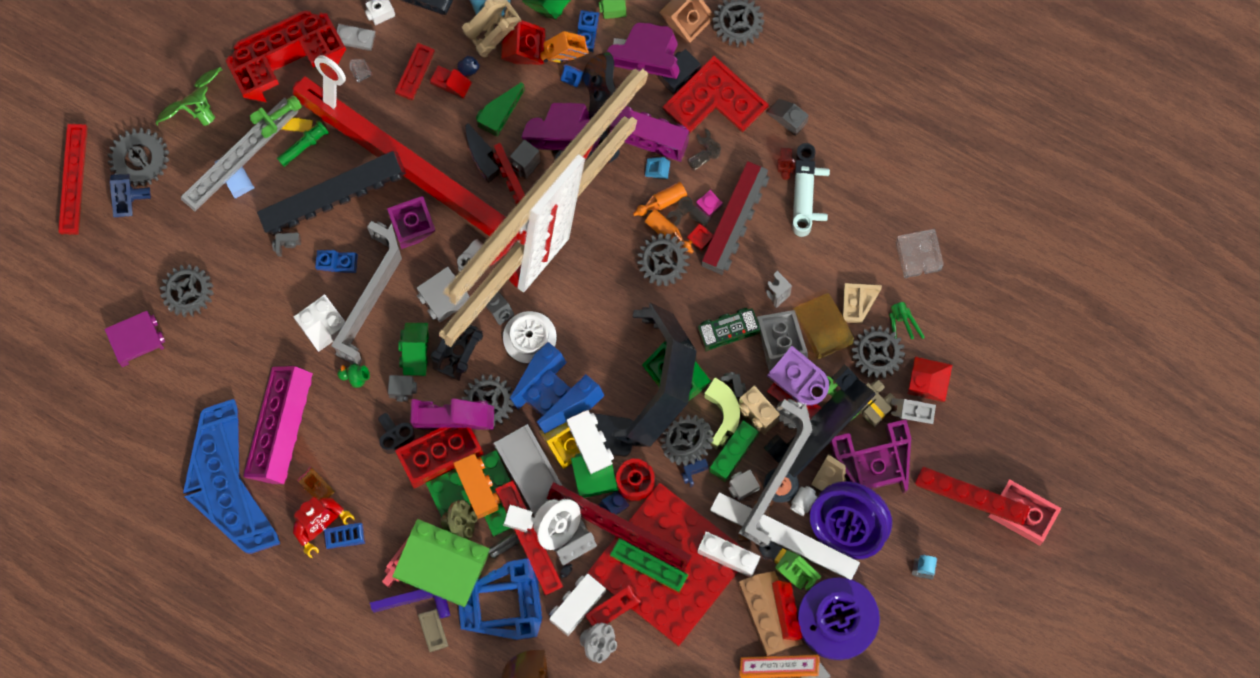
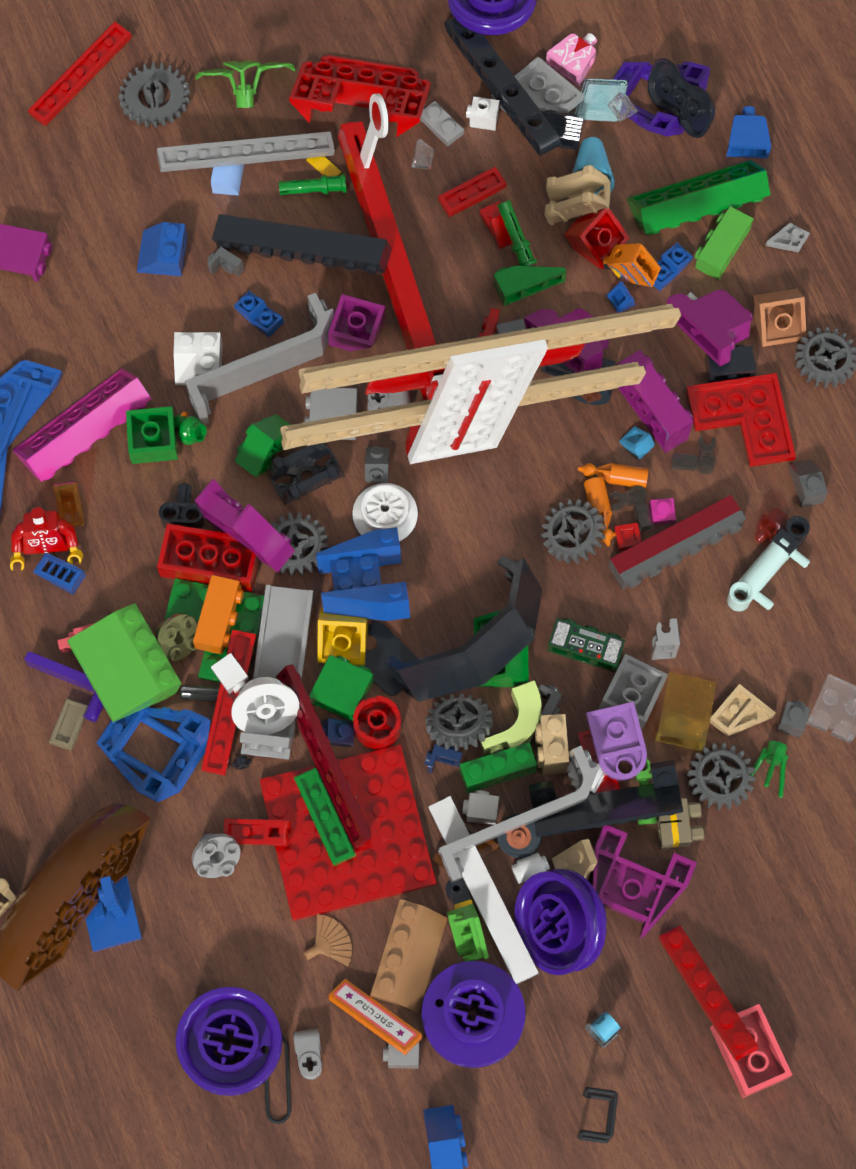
camera: 35 degrees right, 5 degrees down
(123, 195) = (111, 115): dark blue brick -> none
(182, 304) = (102, 232): dark grey gear -> none
(234, 264) = (163, 249): none -> blue slope
(292, 104) = (292, 148): bright green bar -> none
(333, 397) = (151, 435): none -> green brick
(401, 387) = (224, 471): dark grey brick -> none
(468, 66) = (528, 220): dark blue piece -> none
(477, 86) = (520, 245): none -> green pin
(481, 154) = (474, 308): black slope -> none
(577, 604) = (225, 802): white brick -> none
(590, 441) = (358, 650): white brick -> none
(599, 80) = (627, 346): black plate -> none
(713, 641) = (331, 941): none -> medium nougat hand
(728, 554) = (410, 864): white brick -> none
(787, 610) = (426, 965): red plate -> none
(895, 280) = (793, 718): none -> dark grey brick
(914, 410) = (713, 861): light grey hinge -> none
(929, 379) = (754, 843): red slope -> none
(958, 606) = (597, 1136): none -> black piece

